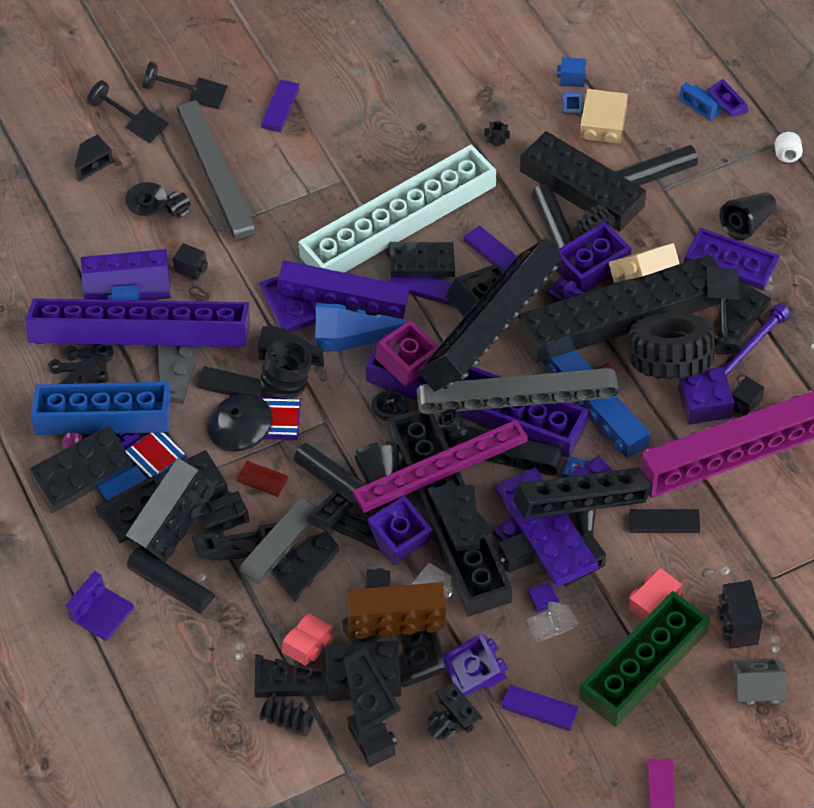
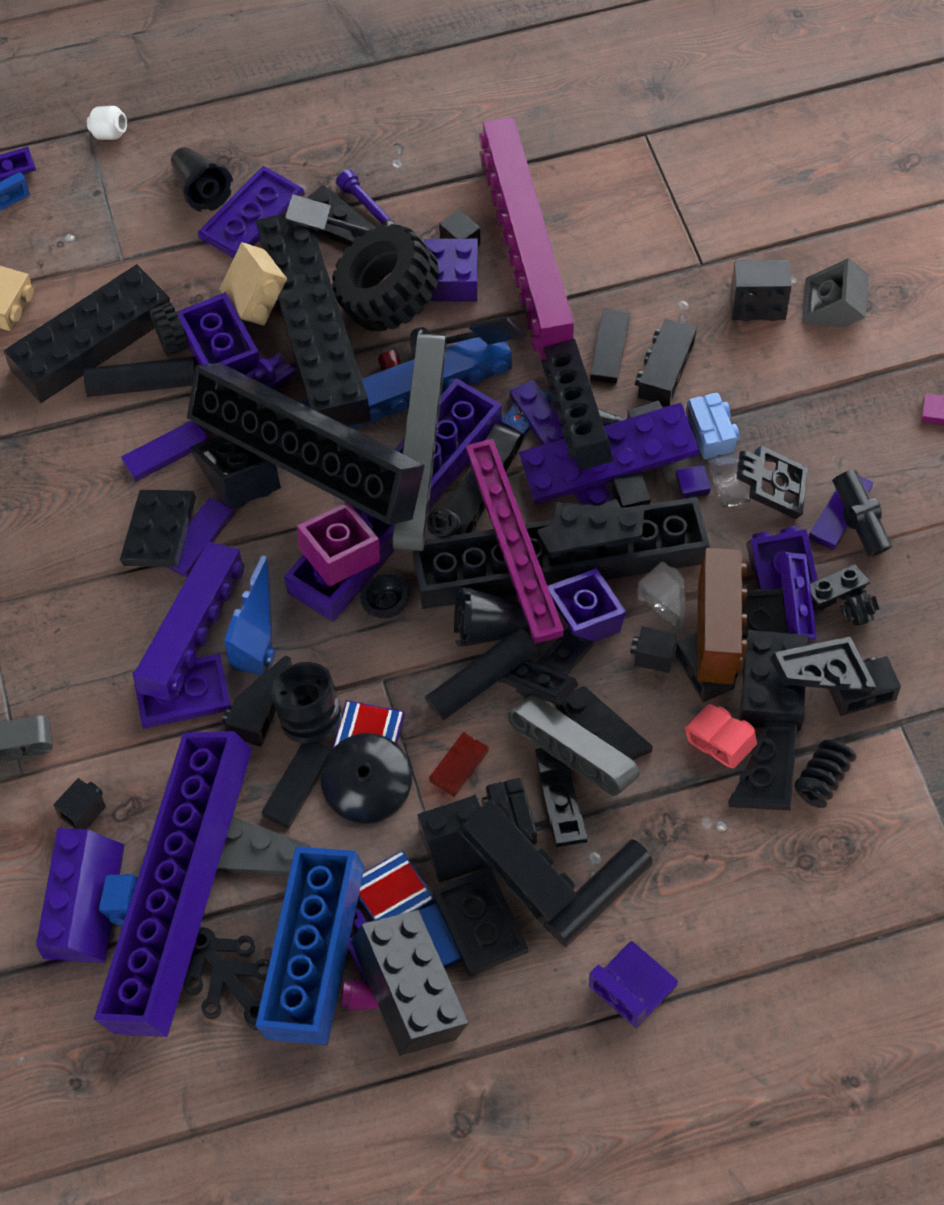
camera: 80 degrees left, 5 degrees up
(399, 212) = (80, 542): light aqua brick -> none
(438, 675) = (797, 594): none -> dark purple tile
(531, 716) = (862, 513): none -> black piece
(550, 629) = (752, 472): none -> black piece
(597, 600) = (712, 426): none -> light blue brick
(628, 391) = (489, 331): none -> black piece
(643, 558) = (665, 362): none -> black brick
(644, 658) = (801, 392): dark green brick -> none
(652, 593) = (715, 369): coral brick -> none
(660, 166) = (87, 251): black brick -> none

